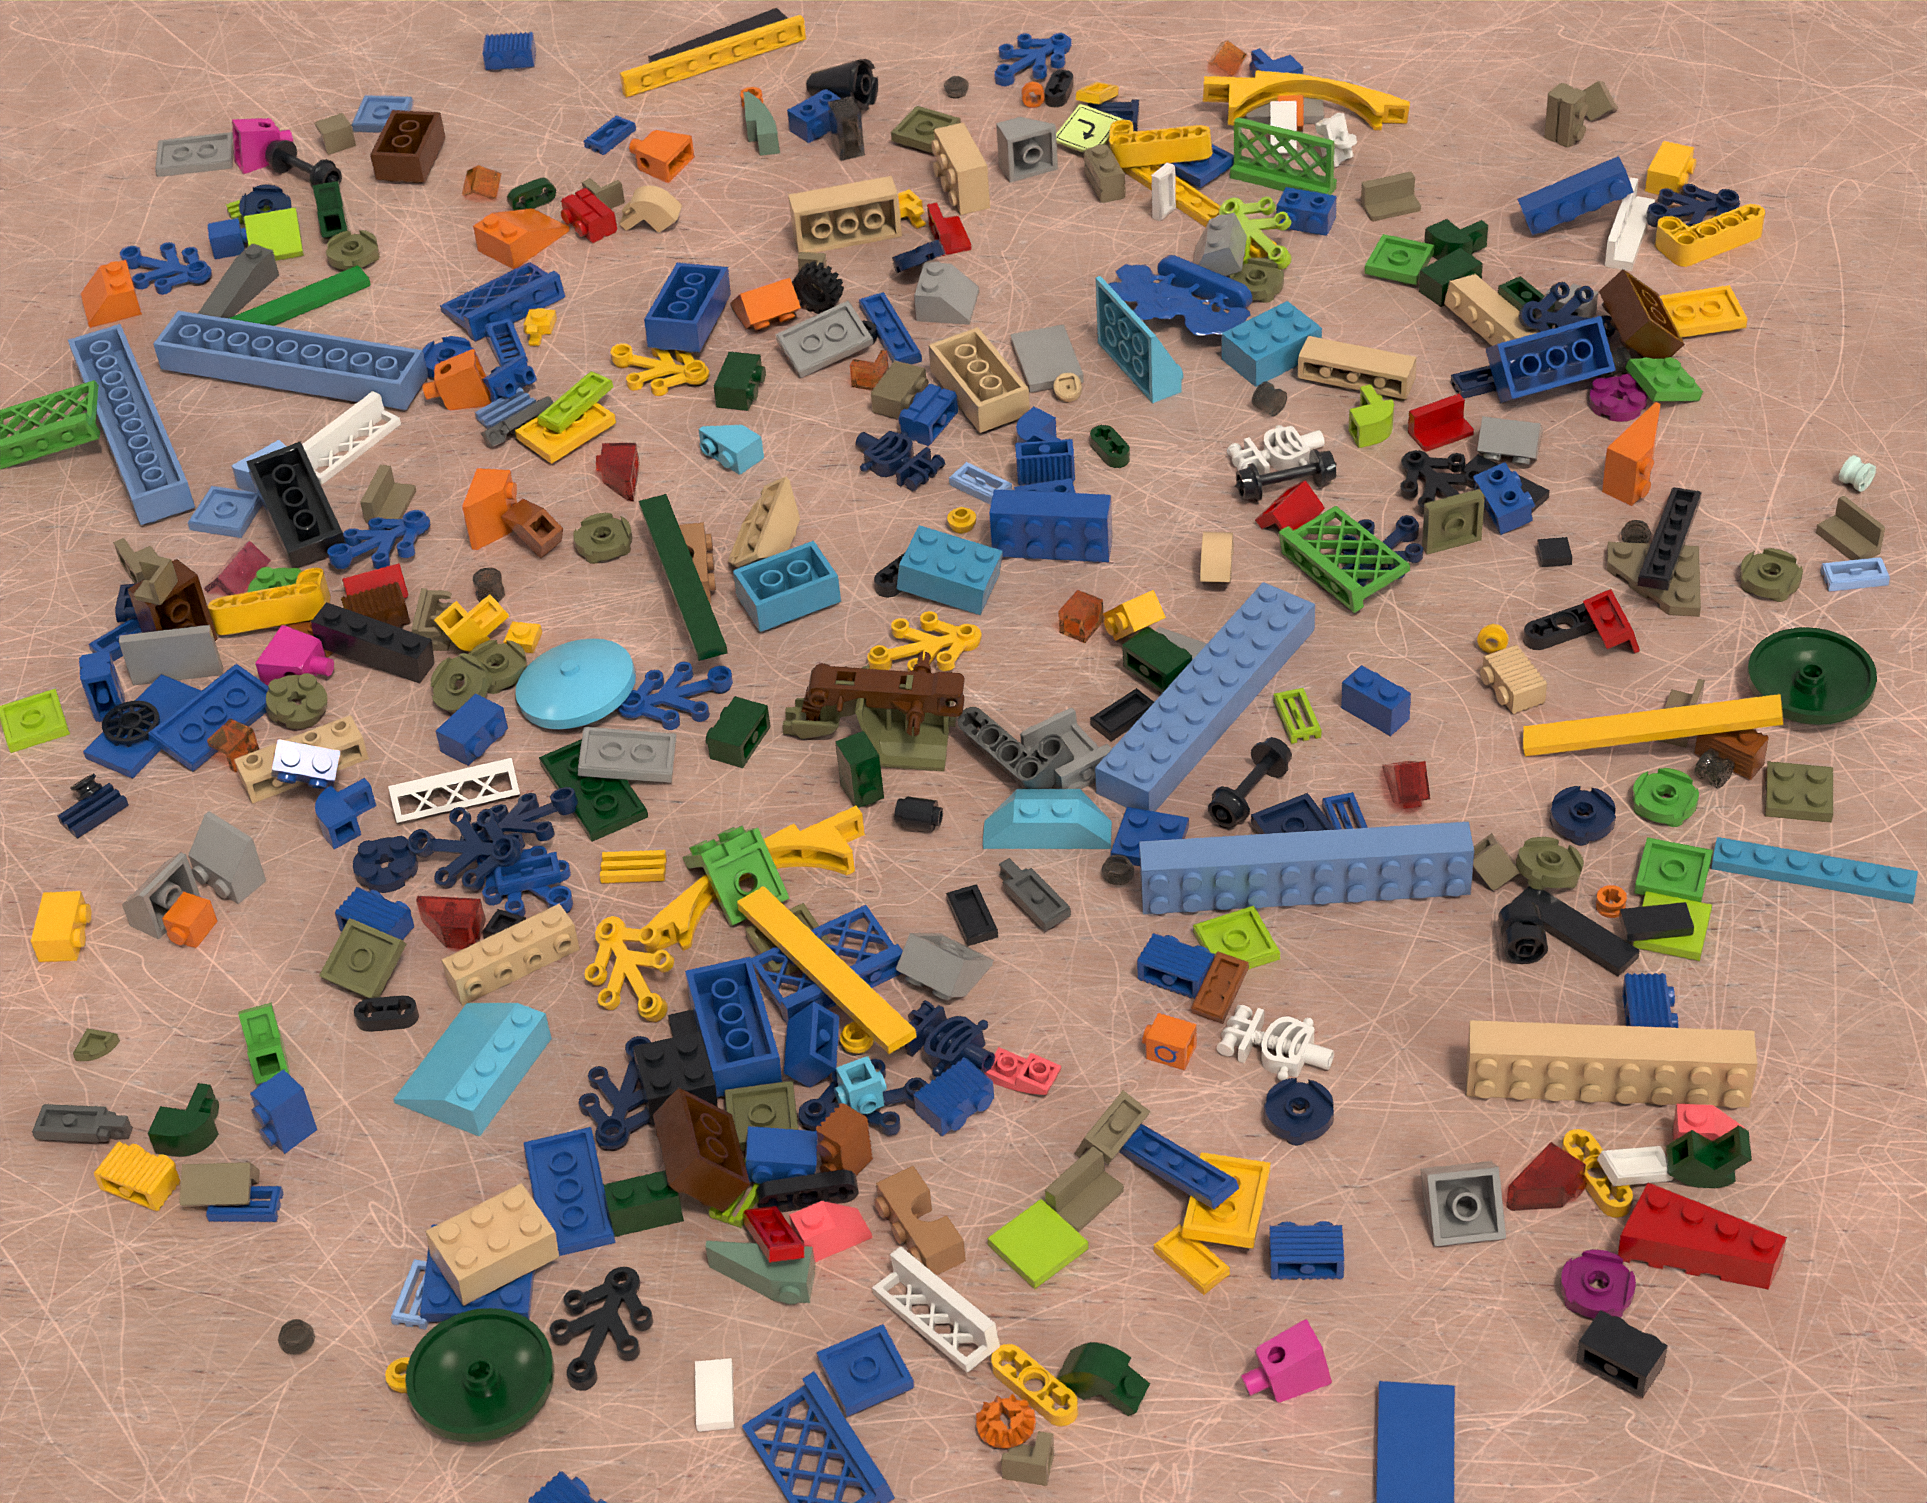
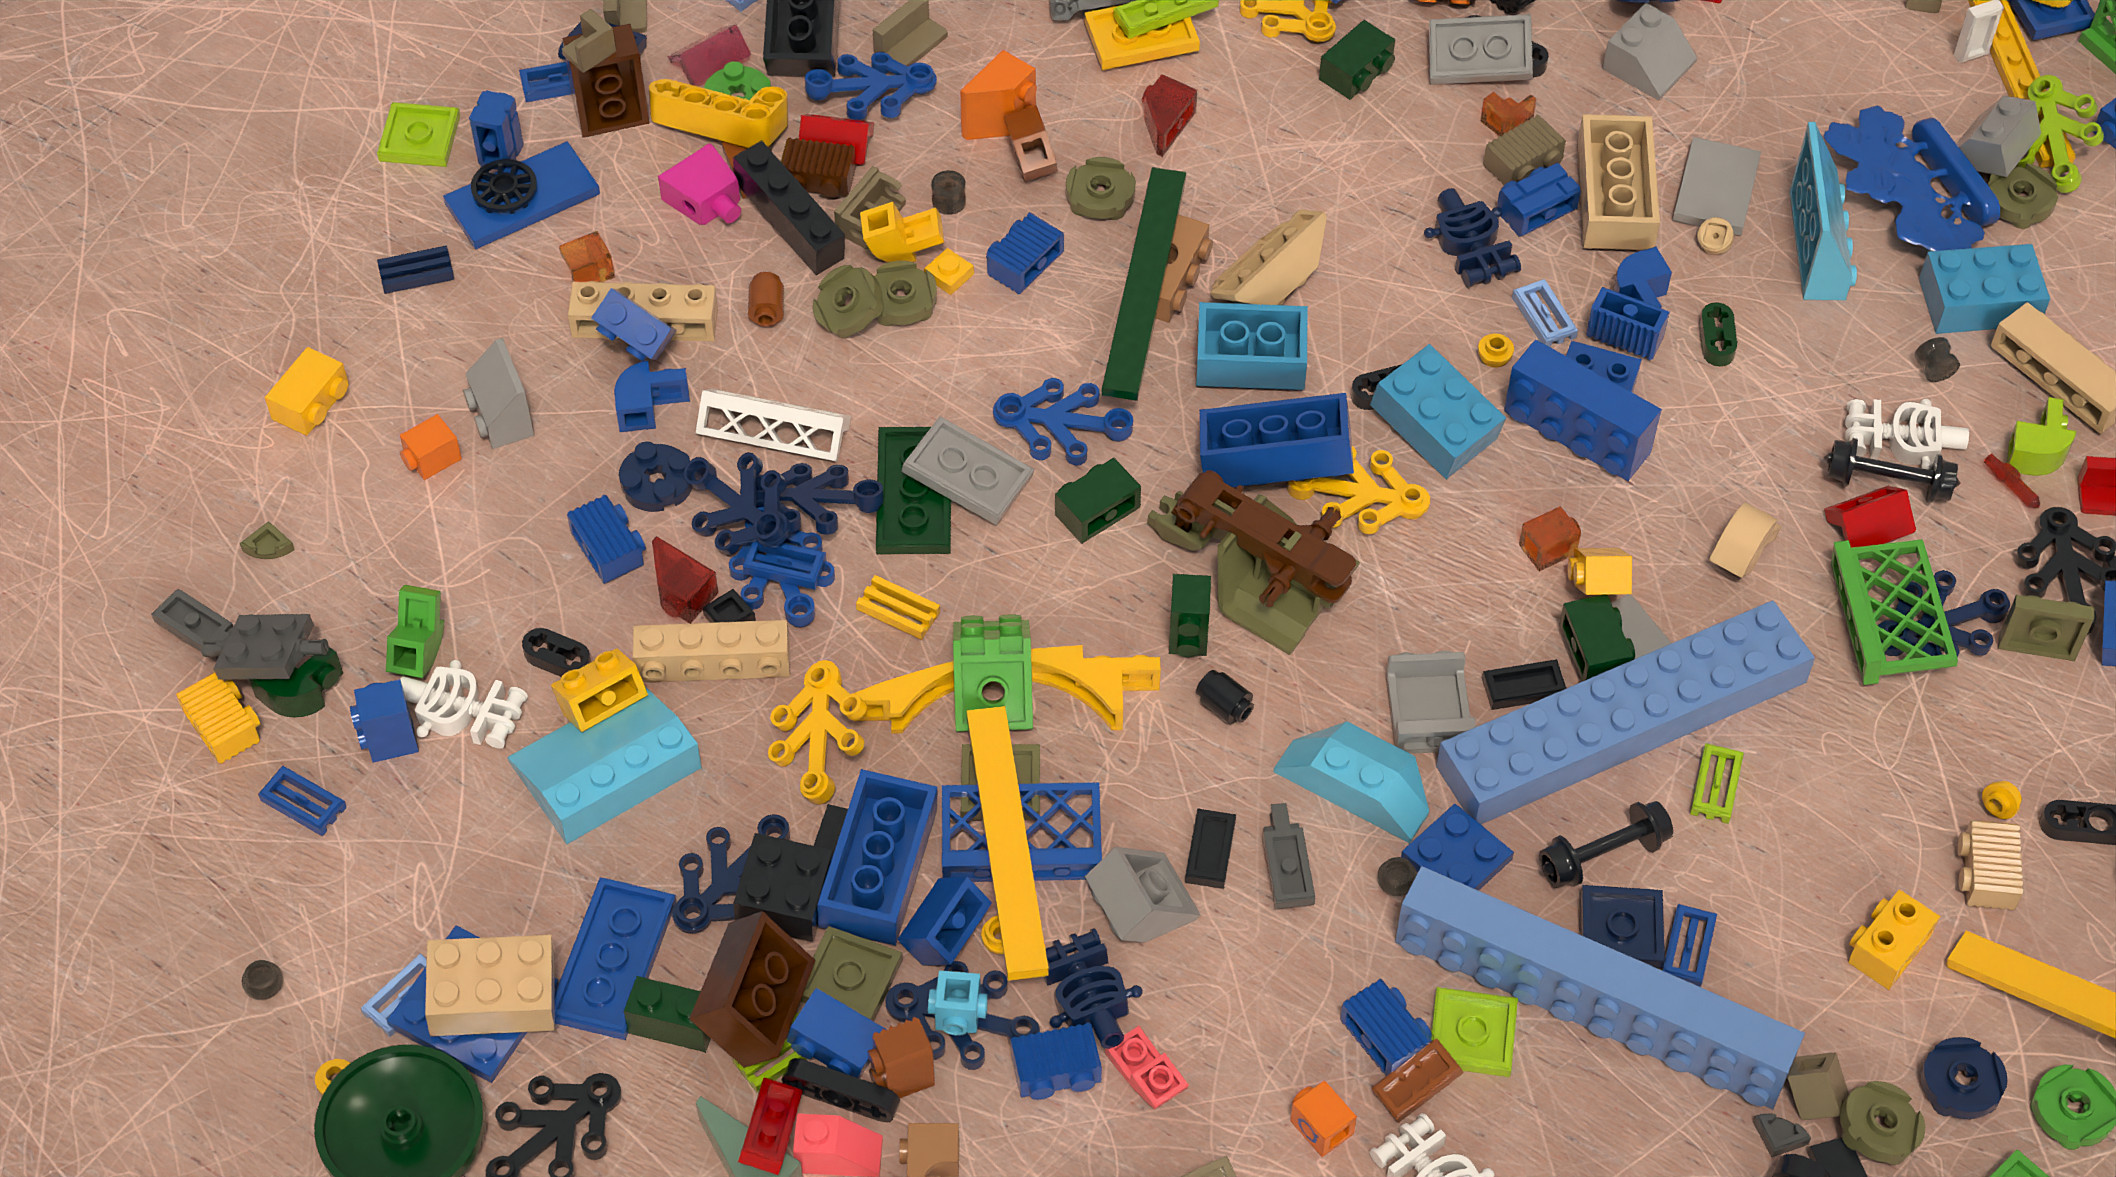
camera: 25 degrees right, 10 degrees up
(86, 787) = (421, 240): black bush -> none
(149, 1105) = (264, 646): none -> dark grey plate
(158, 894) = (416, 402): light grey slope -> none
(173, 653) = (584, 124): light grey tile -> none
(186, 731) = (615, 206): blue tile -> none
(217, 1184) = (283, 768): dark tan panel -> none
(301, 687) = (683, 221): olive plate -> none
(362, 959) = (564, 582): olive plate -> none
(364, 1075) = (451, 712): none -> white torso
(394, 711) = (766, 299): none -> dark orange brick
(439, 1017) = (599, 689): none -> yellow brick
(471, 729) = (830, 360): blue brick -> none
(574, 600) = (1024, 252): none -> blue brick
(575, 683) = (966, 357): medium azure dish -> none
(732, 446) = (1301, 140): medium azure slope -> none
(850, 630) = (1277, 440): none -> blue brick
(890, 329) = (1564, 69): blue tile -> none
(1027, 768) = (1376, 696): dark grey beam -> none
(1366, 449) = (2011, 478): none -> clear red piece
(1376, 700) = (1814, 812): blue brick -> none
(1407, 782) = (1784, 934): clear red slope -> none
(1480, 752) = (1893, 938): none -> yellow brick
(1485, 906) = (1780, 1134): none -> dark grey tile

